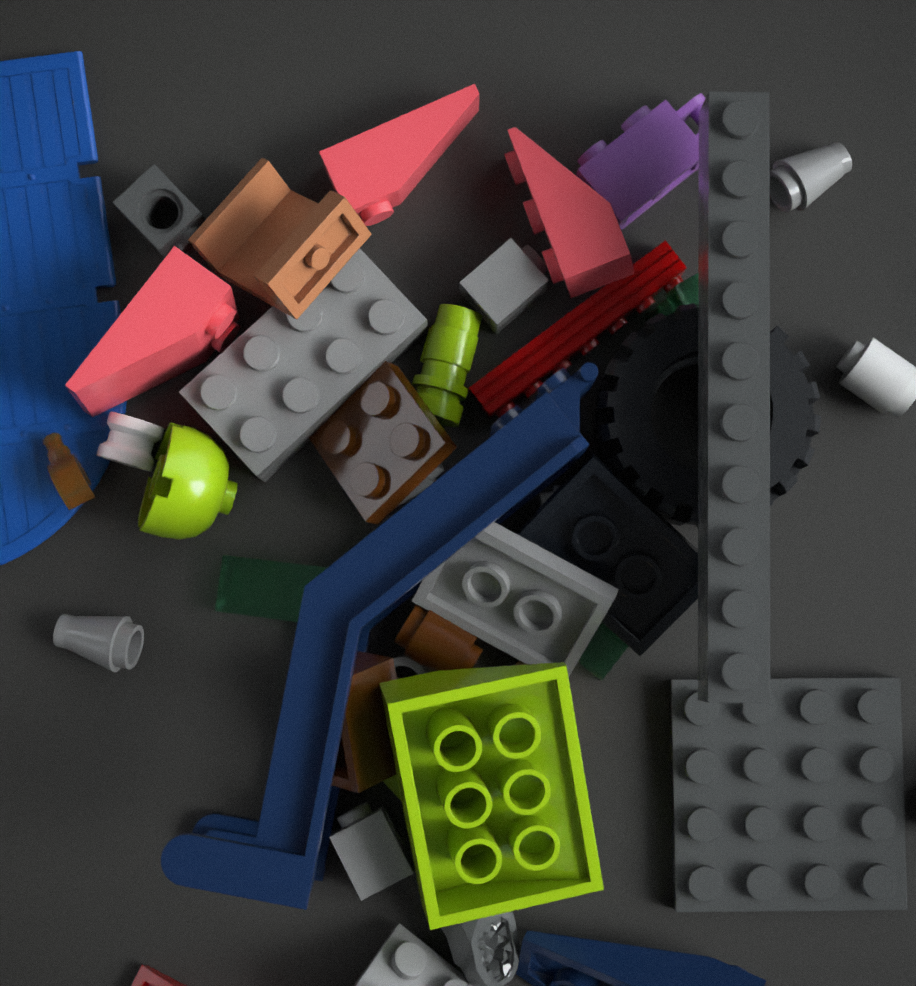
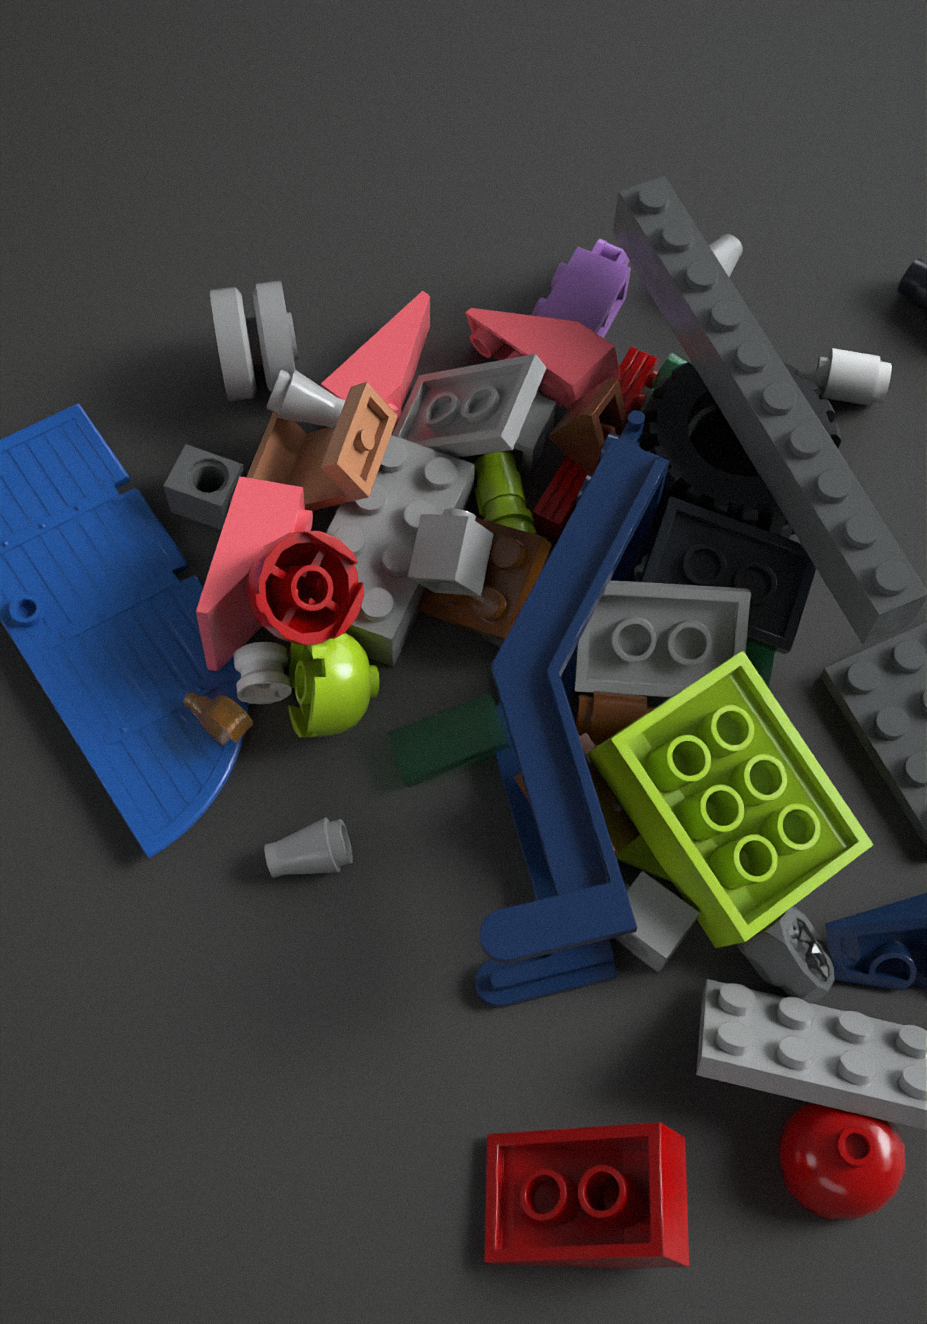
camera: 30 degrees left, 20 degrees down
(178, 406) = (305, 587): none -> red cylinder
(271, 71) = (252, 341): none -> light grey wheel
(288, 170) = (303, 400): none -> light grey cone
(349, 417) = (451, 553): none -> light grey brick
(450, 252) = (472, 406): none -> light grey plate
(565, 333) = (589, 423): none -> copper slope

